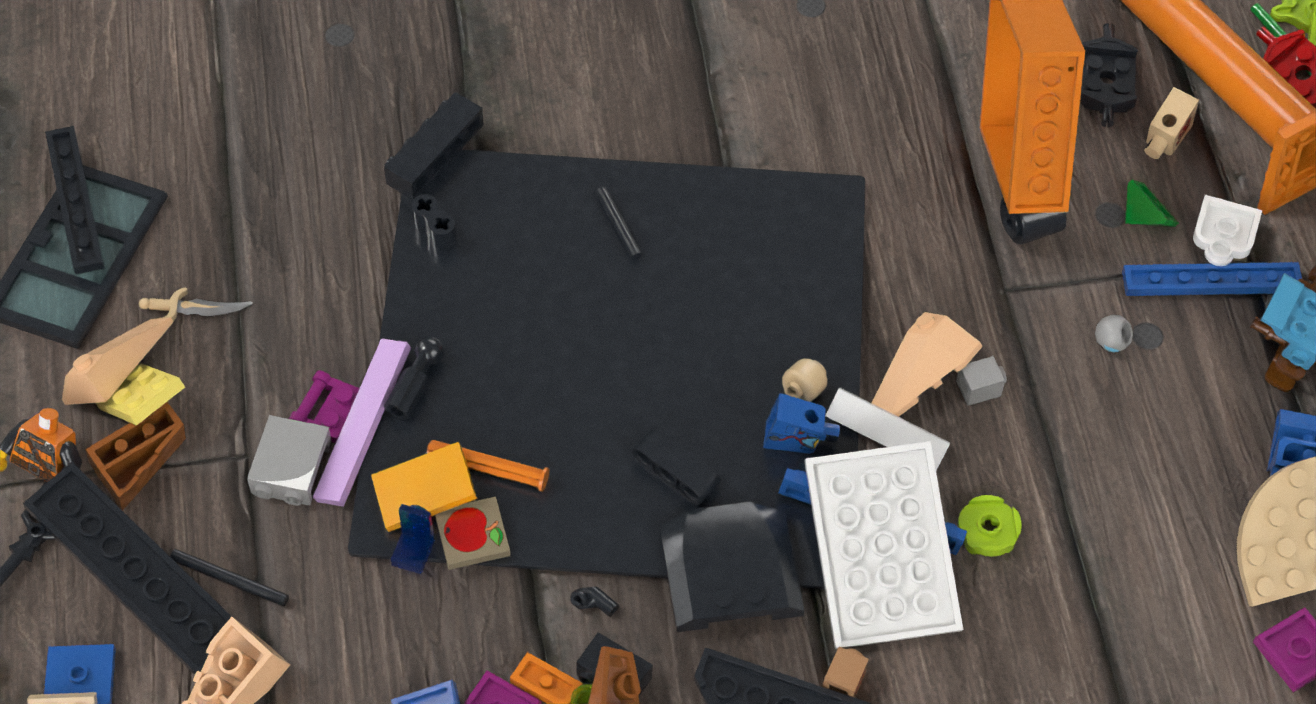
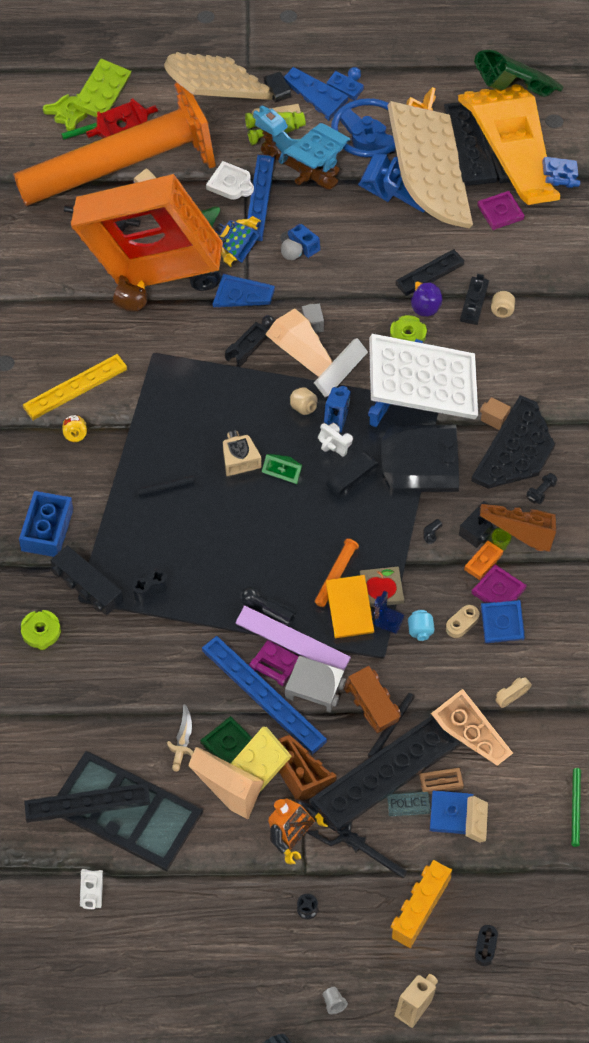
camera: 80 degrees left, 0 degrees up
(92, 614) = (408, 804): none -> clear light blue tile
(140, 681) = (442, 773): none -> medium nougat tile
(193, 361) = (226, 740): none -> dark green tile
(257, 535) = (373, 699): none -> dark orange wedge
(267, 398) = (264, 695): none -> blue plate
(360, 124) = (40, 639): none -> lime plate
(407, 597) = (421, 625): none -> medium azure head
(427, 662) = (464, 621): none -> tan plate
(525, 86) = (46, 524): none -> blue brick
(677, 368) = (282, 467): none -> green slope
(687, 305) = (240, 454): none -> tan torso
(699, 95) = (74, 428): none -> yellow head
(748, 423) = (333, 440): none -> white hips
(784, 93) = (74, 387): none -> yellow tile
(912, 297) = (249, 341): none -> black plate
(953, 131) = (128, 296): none -> reddish brown piece
(1010, 278) = (242, 292): none -> blue wing
(1061, 543) = (426, 299): none -> dark purple piece
(1083, 668) = (503, 304): none -> tan head
(1087, 626) = (474, 300): none -> black plate
(1104, 252) = (237, 238): none -> torso
(1126, 547) = (430, 272): none -> black plate
(1140, 352) = (308, 239): none -> blue leg

